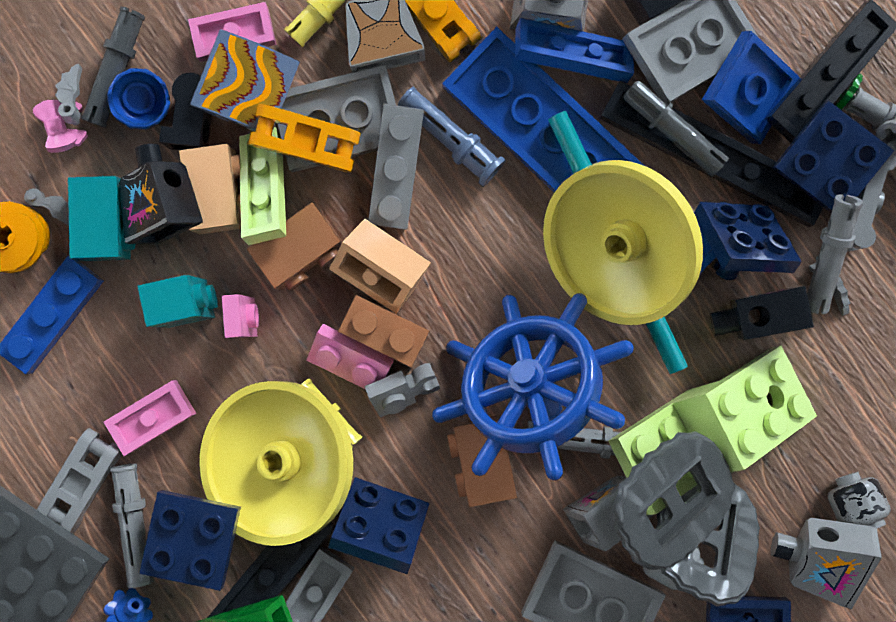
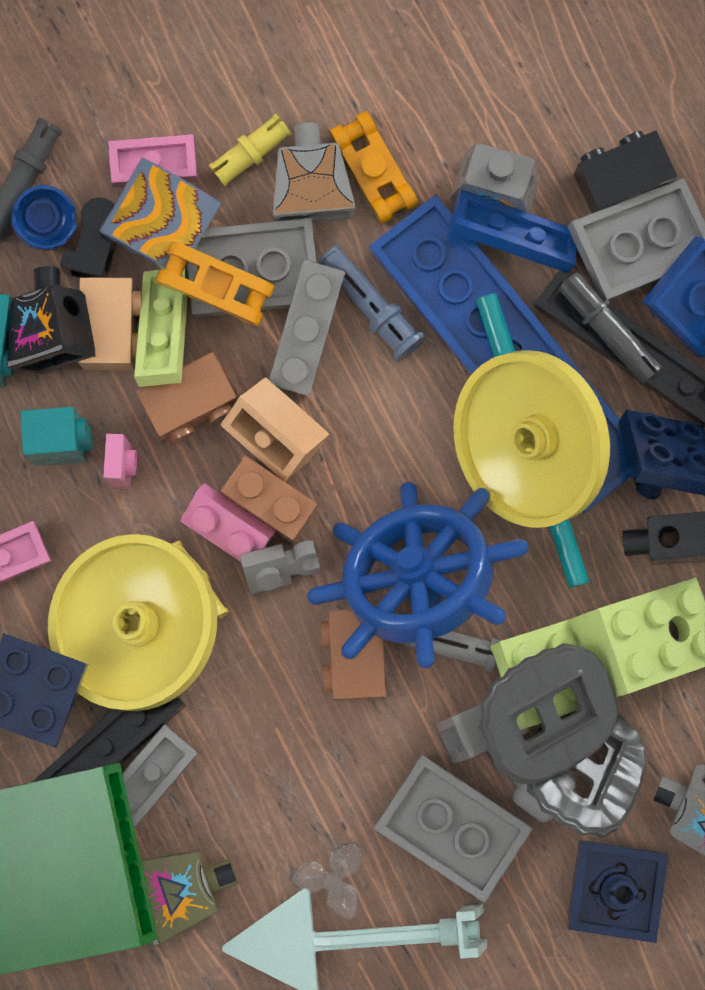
camera: 10 degrees right, 5 degrees down
(379, 525) = (234, 705): dark blue plate -> none

